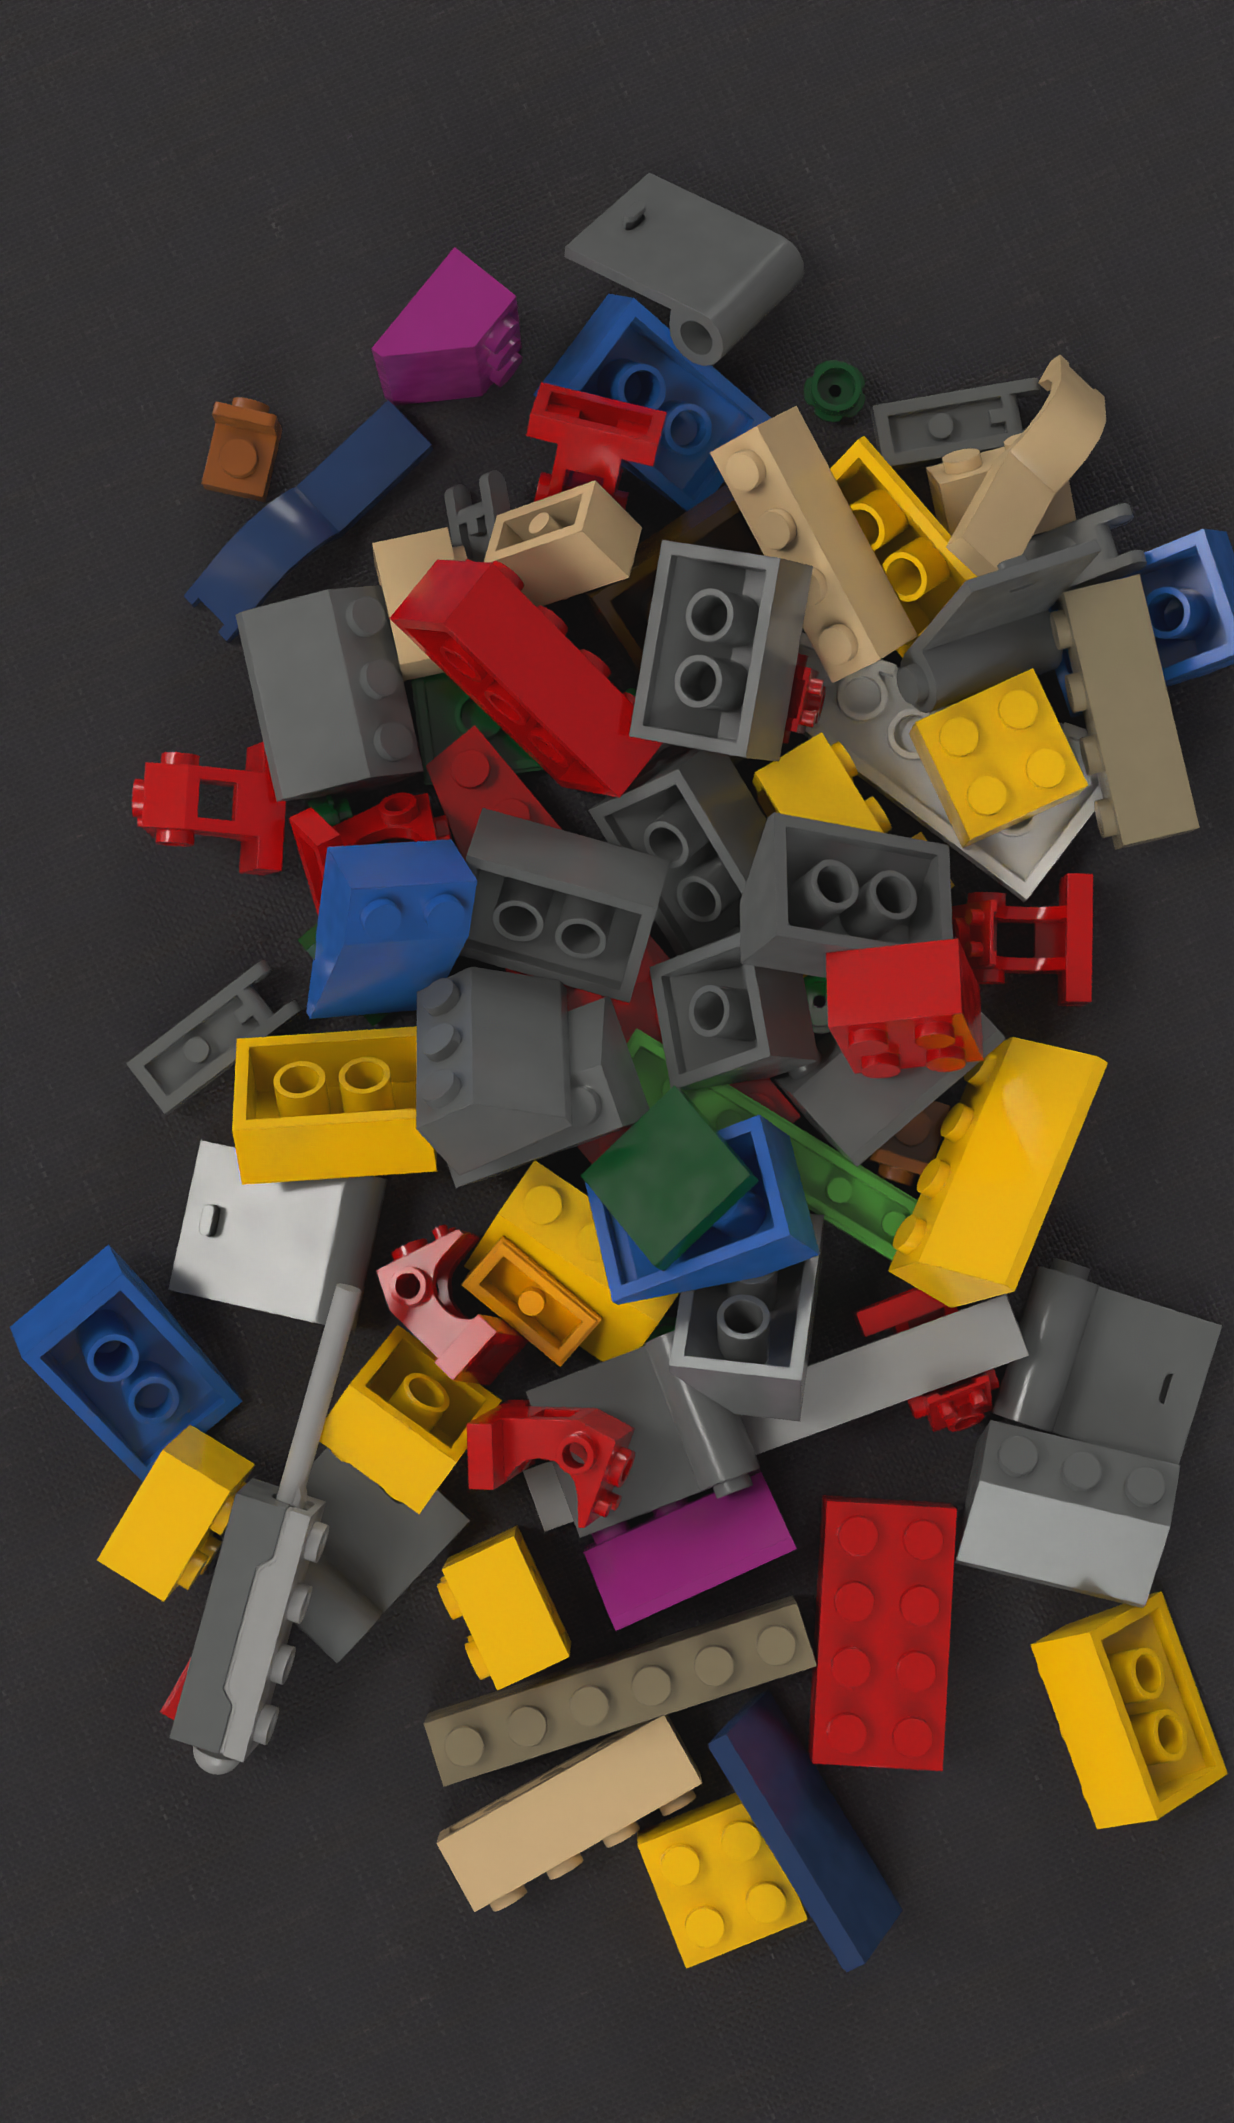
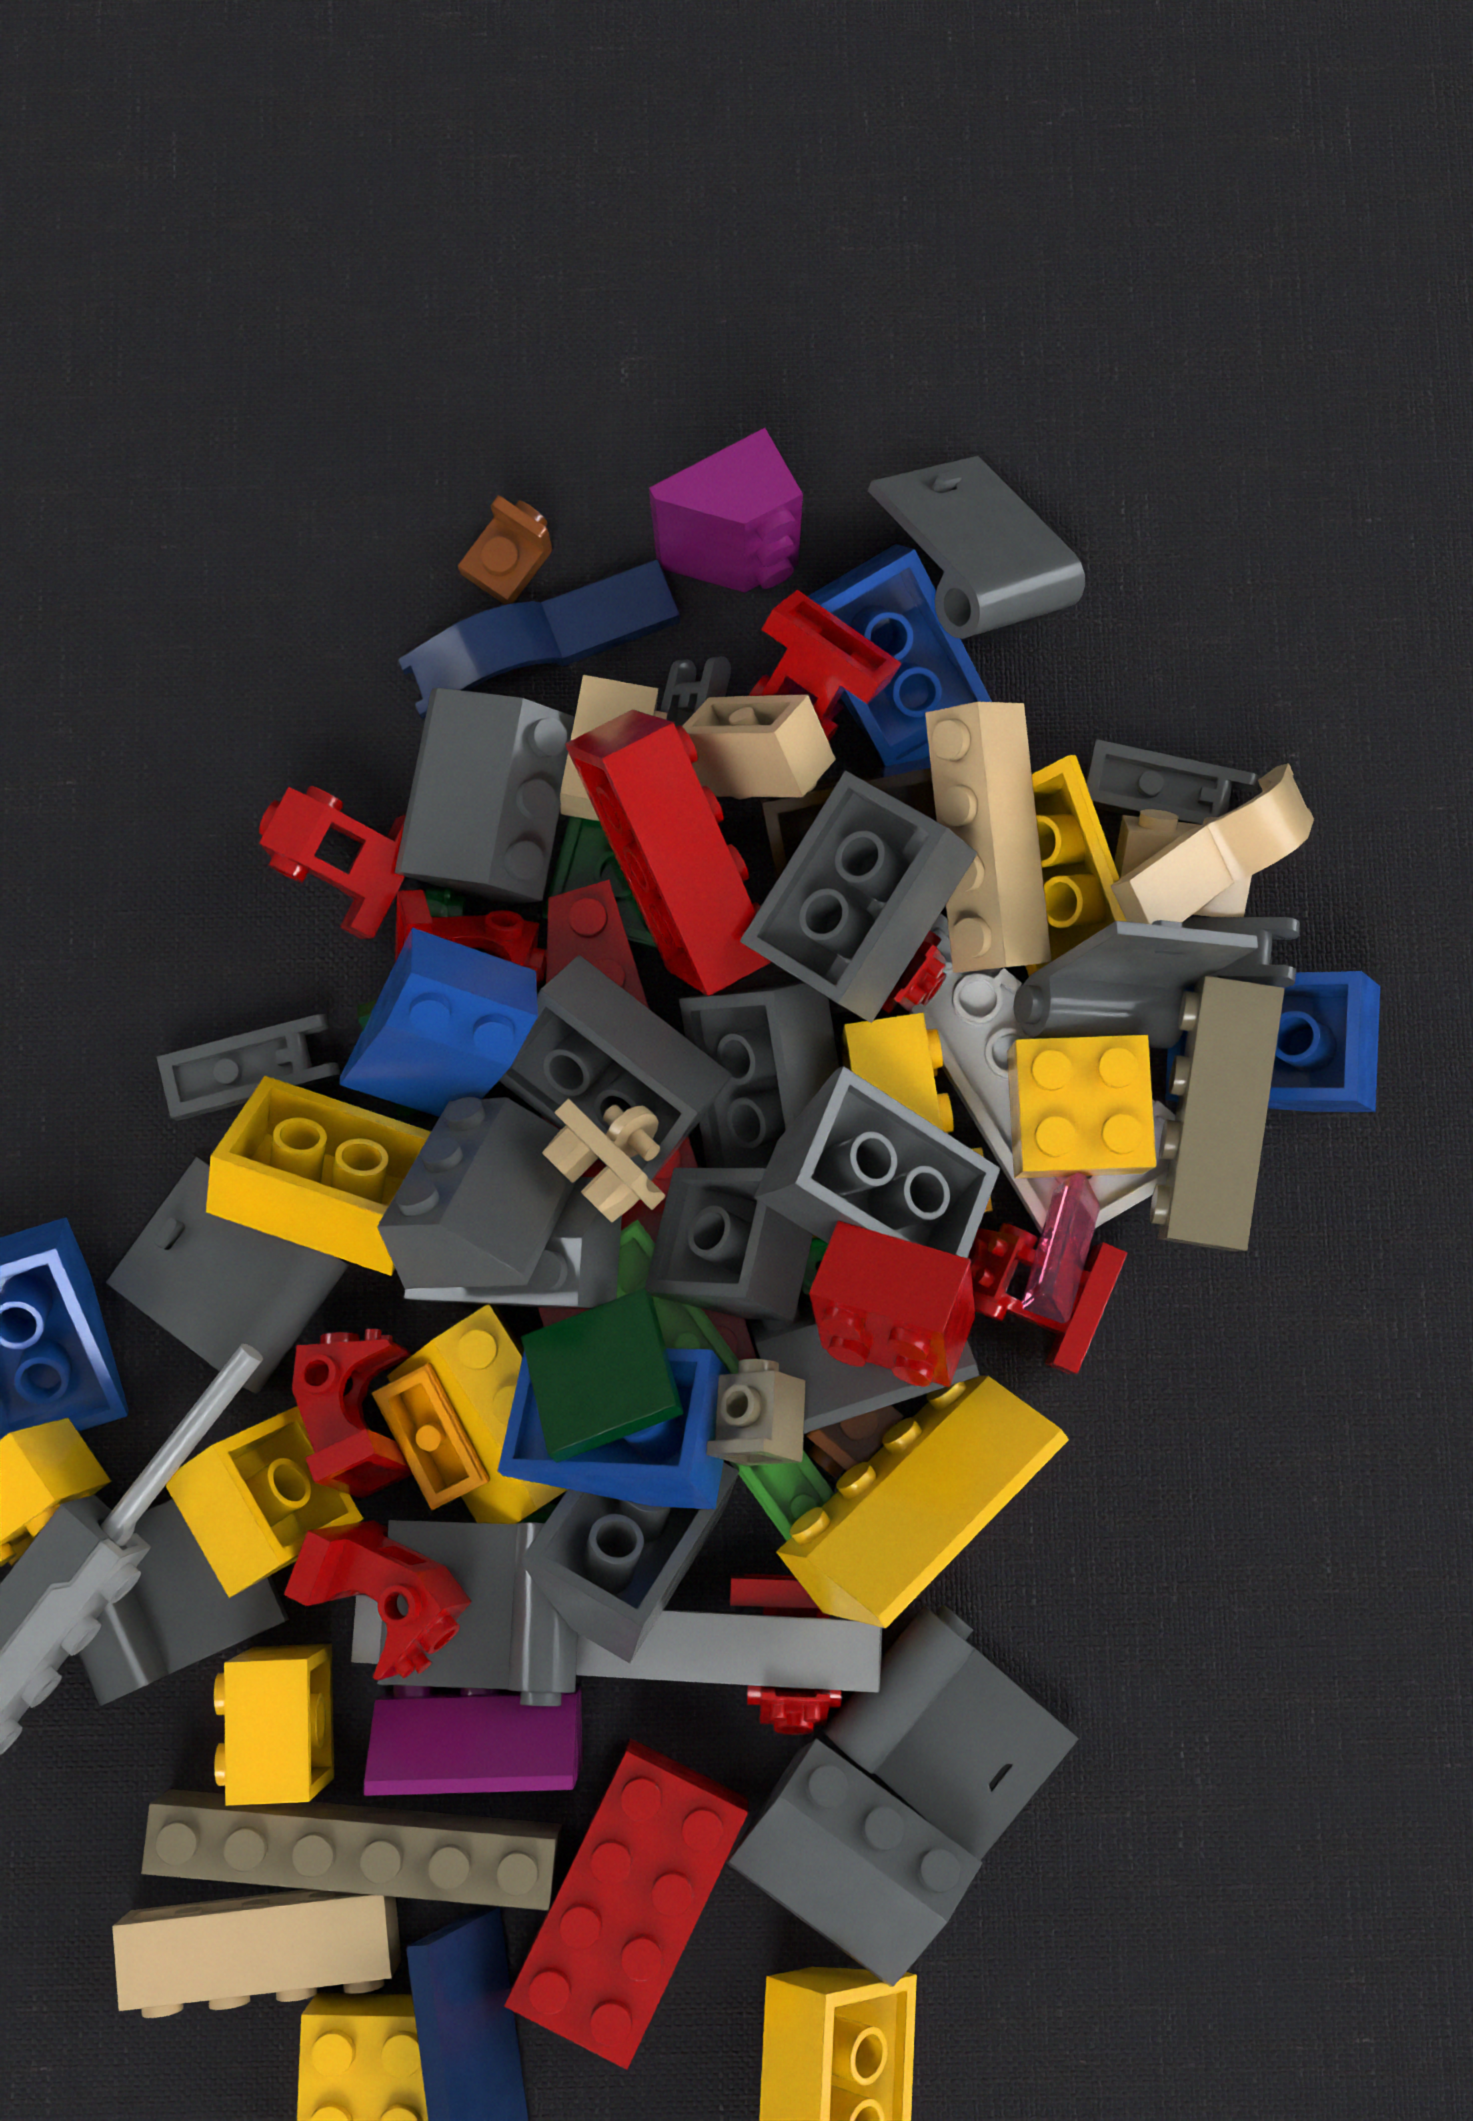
camera: 25 degrees right, 5 degrees down
(613, 997) = (621, 1180): none -> tan hips
(825, 1155) = (759, 1415): none -> dark tan brick
(836, 374) = (1069, 698): dark green plate -> none
(1033, 895) = (1062, 1250): none -> clear pink slope

